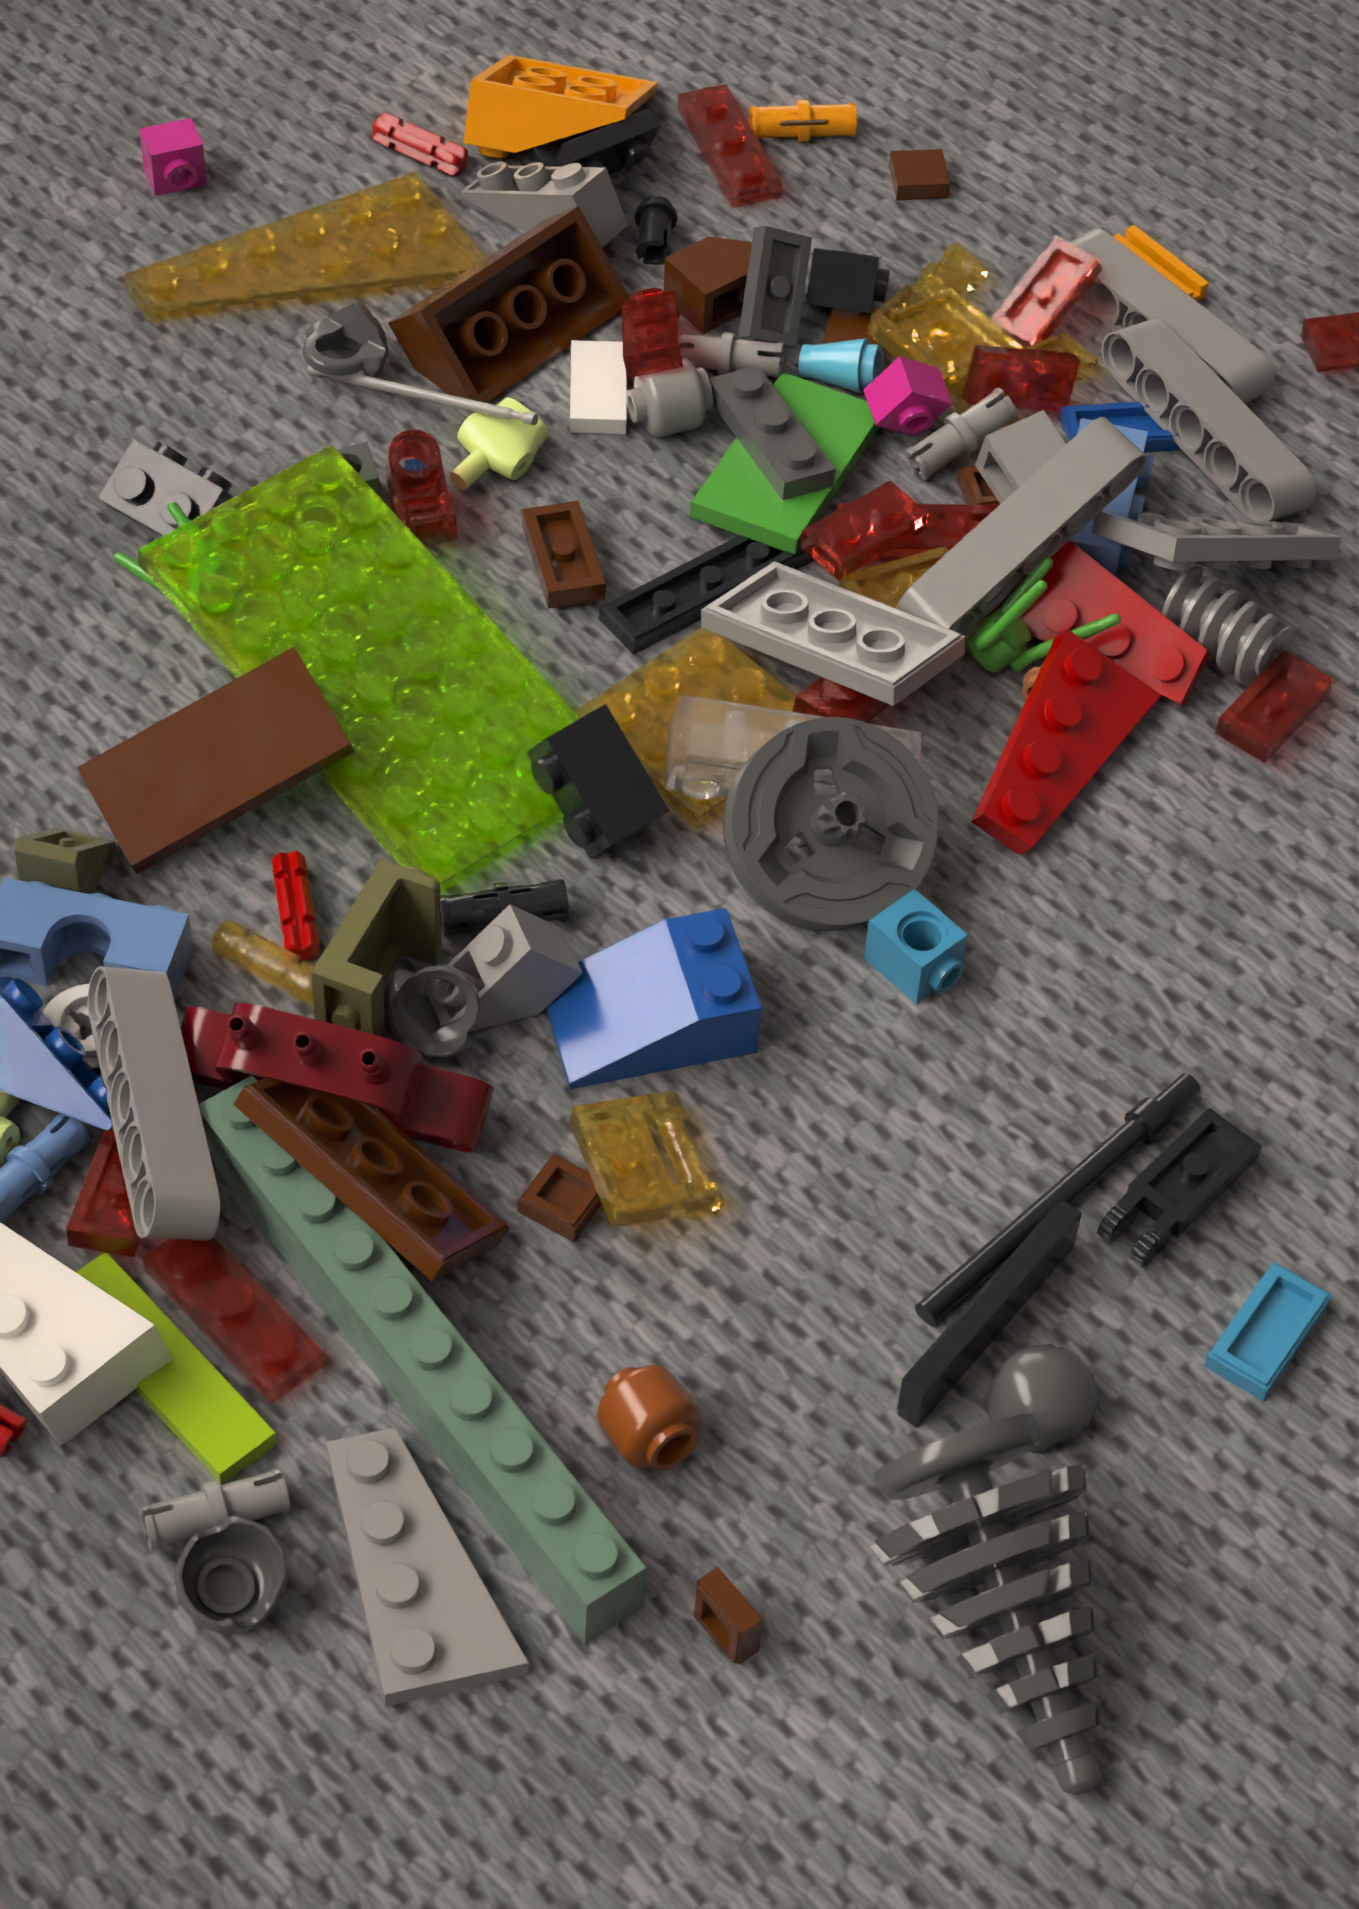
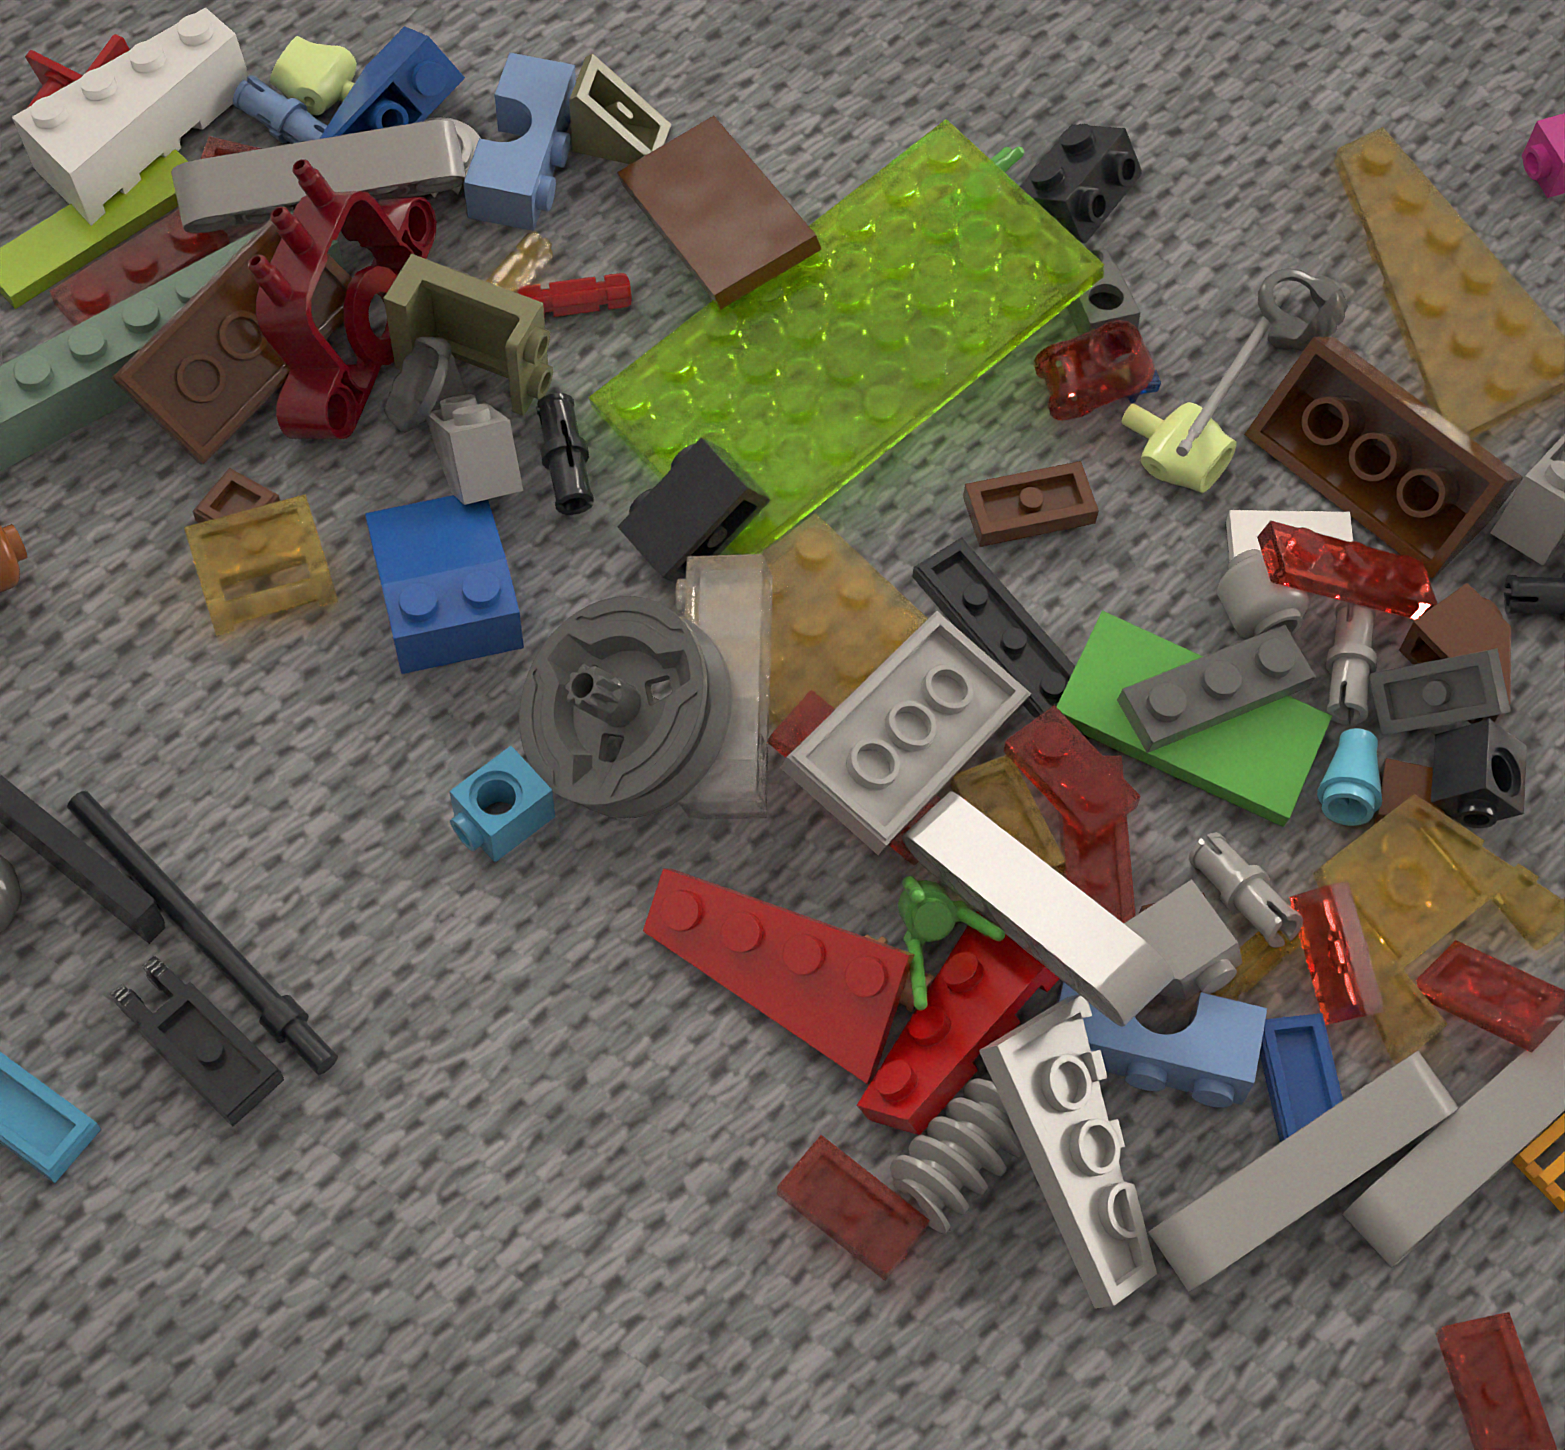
camera: 90 degrees right, 10 degrees up
(907, 396) = (1288, 831): dark pink plate -> none

